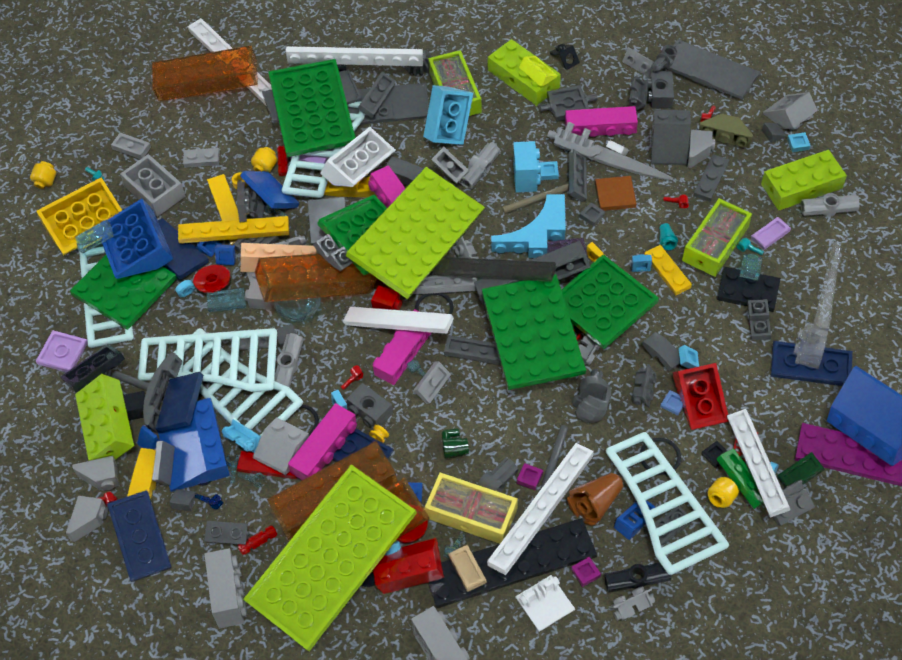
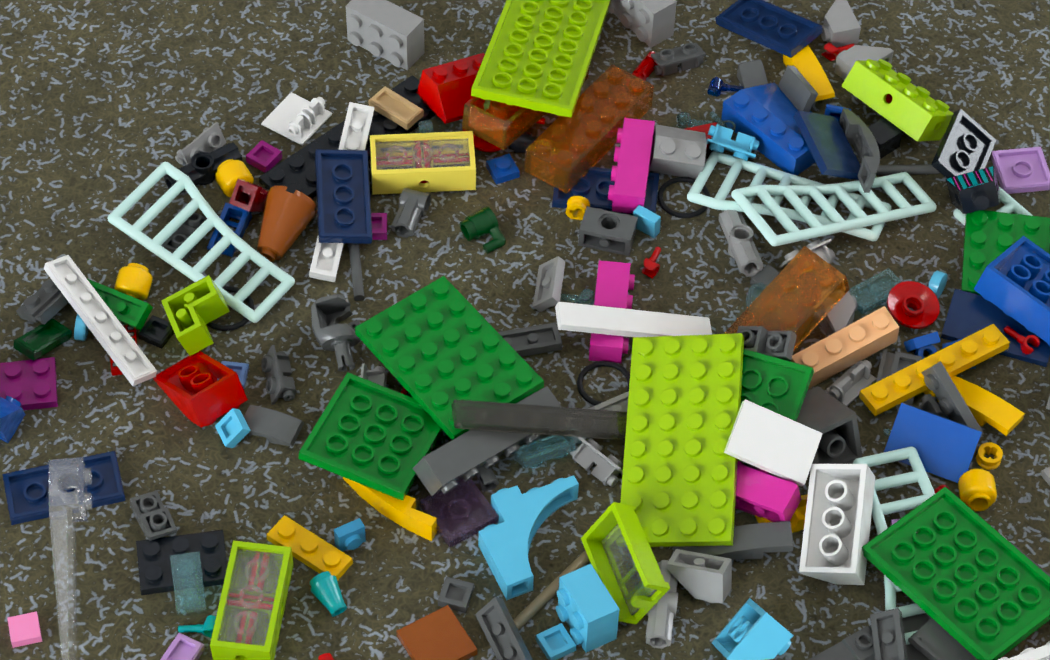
camera: 150 degrees right, 5 degrees down
(113, 328) = (974, 190): none -> black torso
(166, 228) = (1023, 340): none -> red hand
(370, 194) = (773, 442): none -> white tile
(491, 180) = (625, 562): none -> lime door
(545, 494) = (343, 196): none -> dark blue tile
(612, 526) = (249, 196): none -> dark red leg
(617, 554) = (229, 172): none -> yellow head
(691, 441) = (191, 311): none -> lime brick
(857, 282) = (24, 629): none -> bright pink tile

